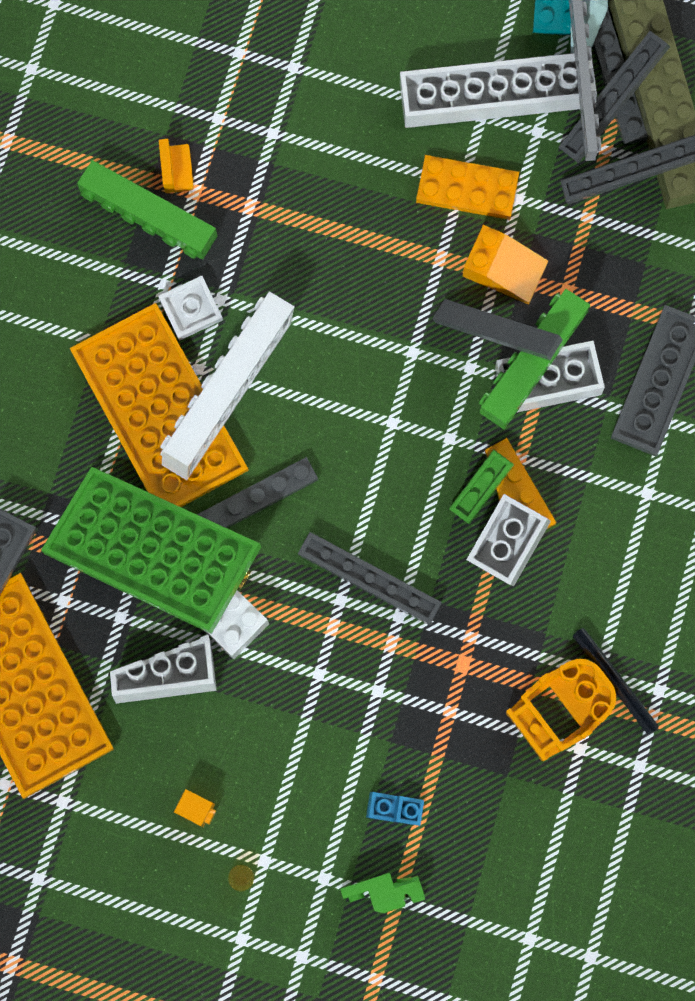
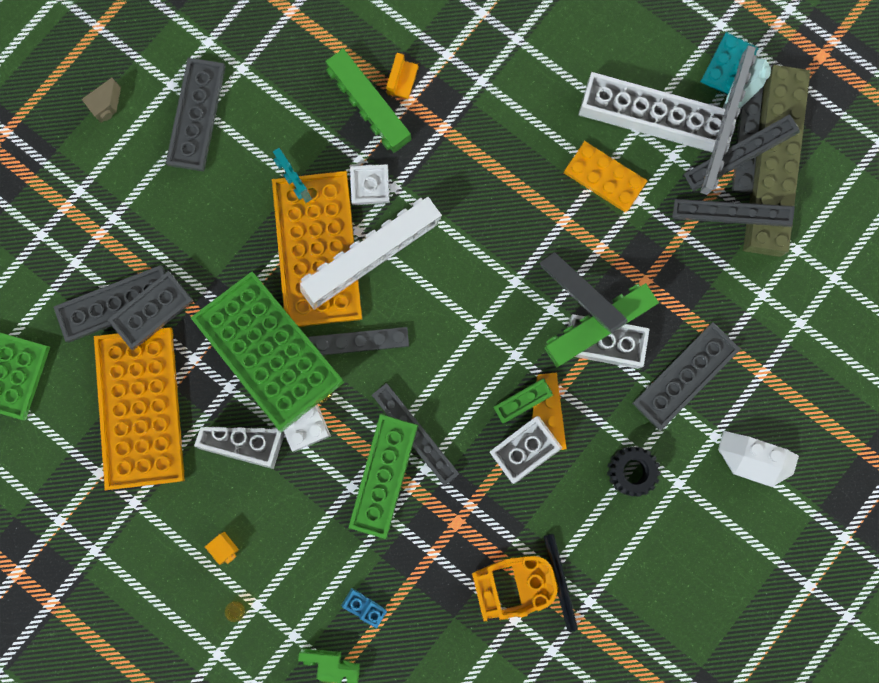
camera: 20 degrees right, 5 degrees up
(112, 345) = (291, 176): none -> teal wing
(352, 642) = (383, 476): none -> bright green plate
(504, 265) = (608, 245): light orange slope -> none
(656, 497) = (650, 471): none -> black tyre

